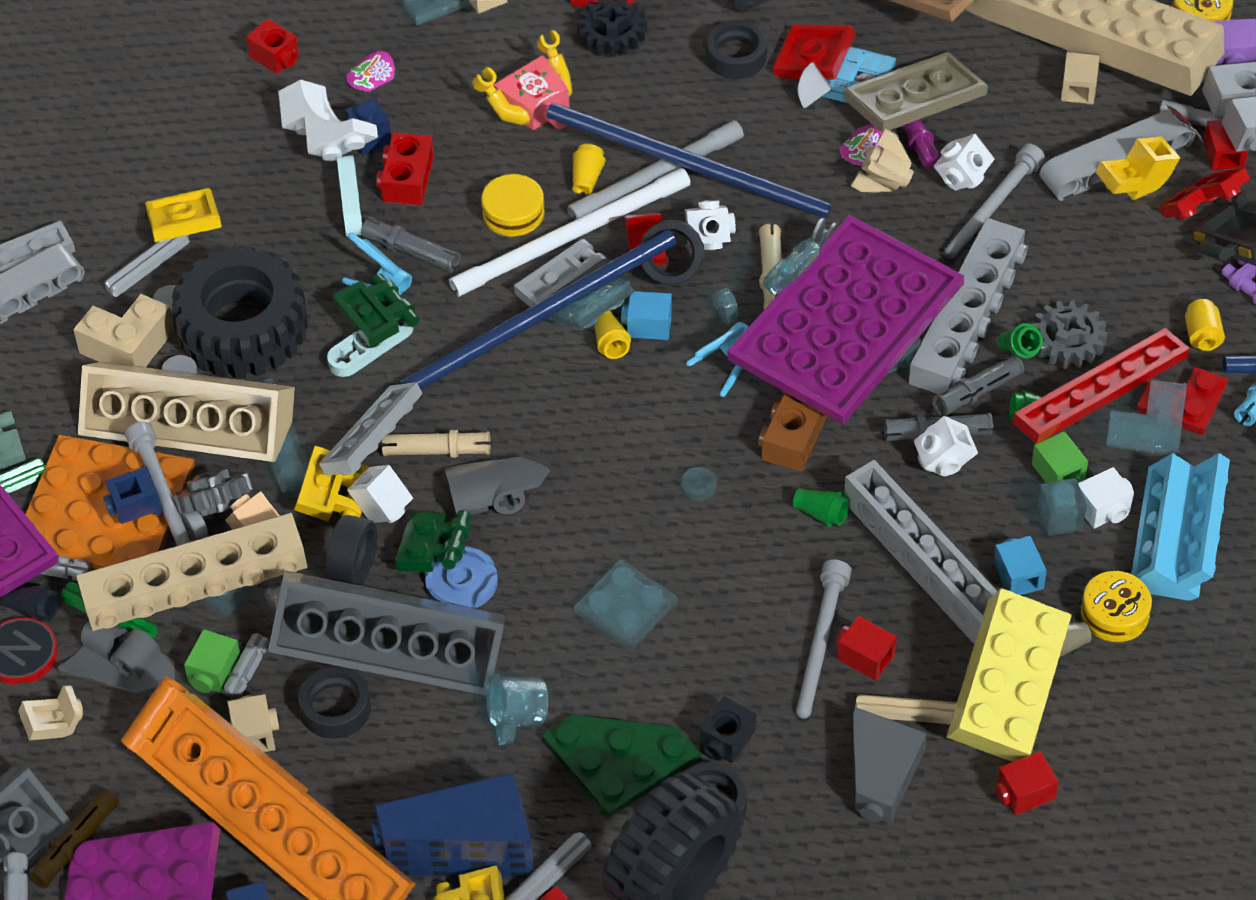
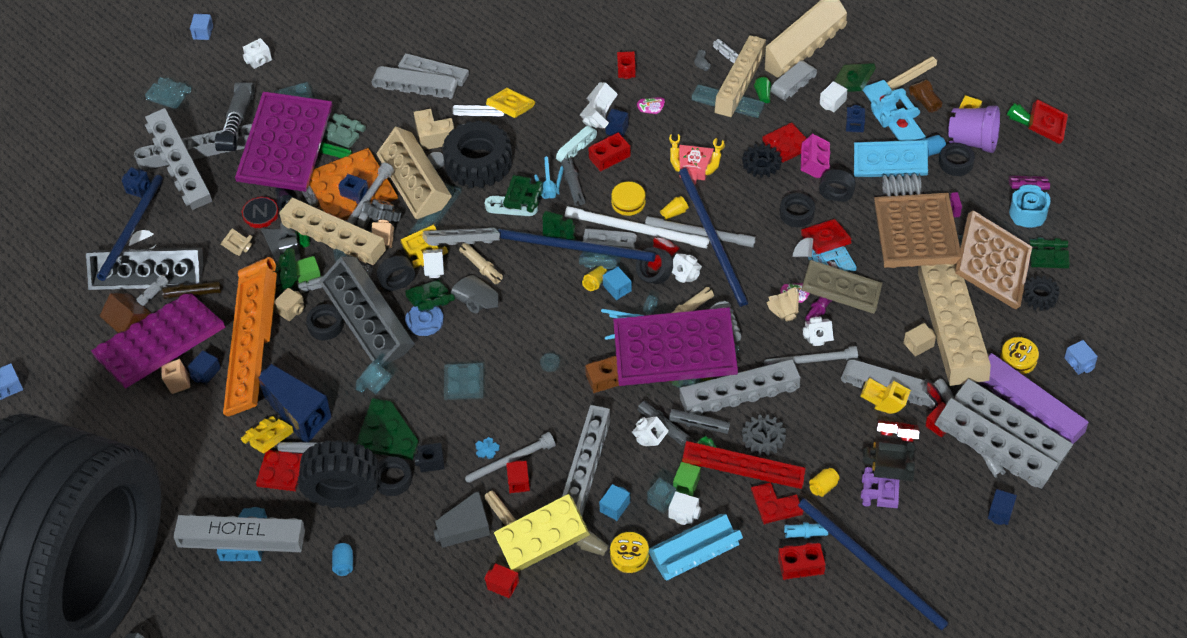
camera: 50 degrees right, 0 degrees up
(192, 673) = (286, 271): none -> dark green plate
(482, 305) = (554, 226): none -> dark green plate
(771, 656) = (486, 448): none -> dark azure plant
(790, 268) = (682, 307): clear light blue tile -> none
(822, 505) = (578, 411): green cone -> none
(1022, 340) = (733, 422): green cone -> none
(1158, 429) = (743, 502): clear light blue plate -> none

